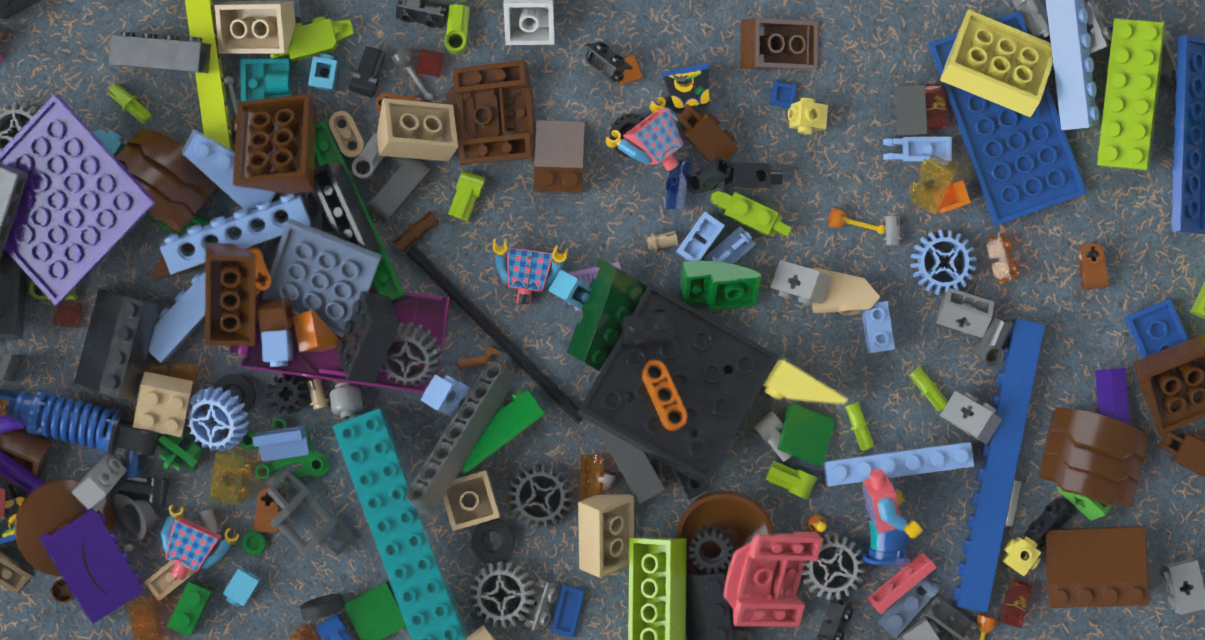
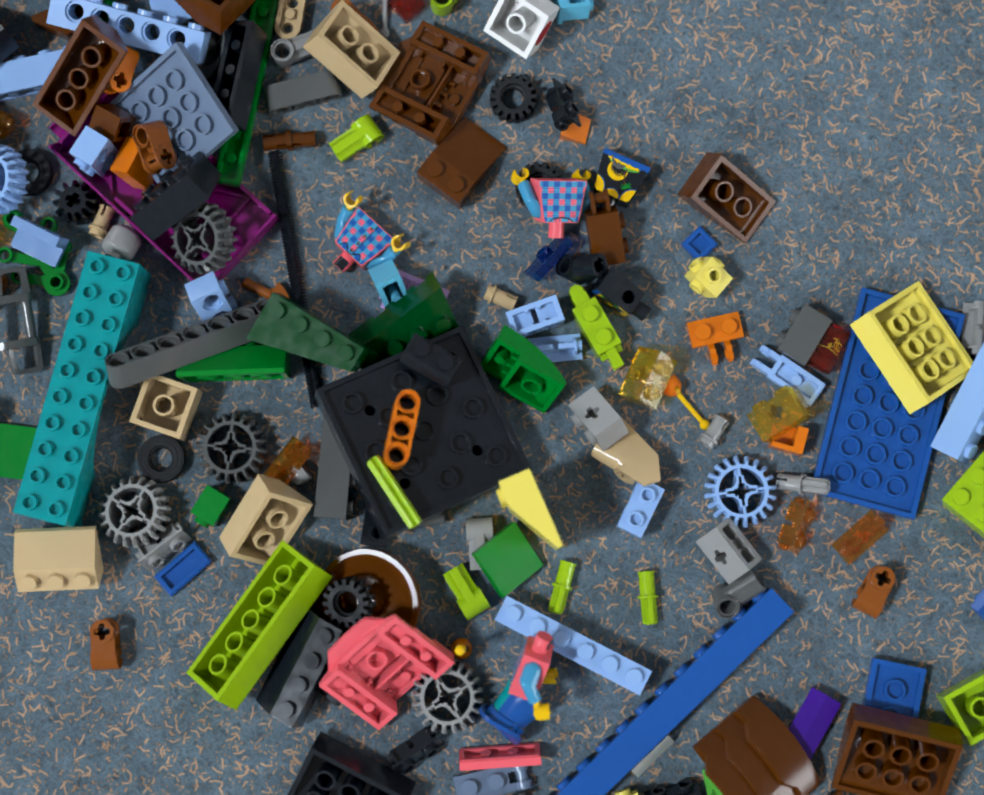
camera: 45 degrees right, 5 degrees down
(322, 310) = (154, 144): none -> dark orange piece
(538, 374) = (302, 333): none -> dark green wedge
(556, 550) = (211, 507): none -> green brick
(571, 67) = (513, 83): none -> black tyre
(691, 445) = (394, 491): none -> lime axle
(815, 225) = (647, 377): none -> clear yellow brick
(841, 152) = (714, 331): none -> orange hinge
(980, 425) = (668, 648): light grey brick -> none
(986, 224) = (803, 484): none -> light grey axle
(1055, 233) = (860, 537): none -> clear orange hinge

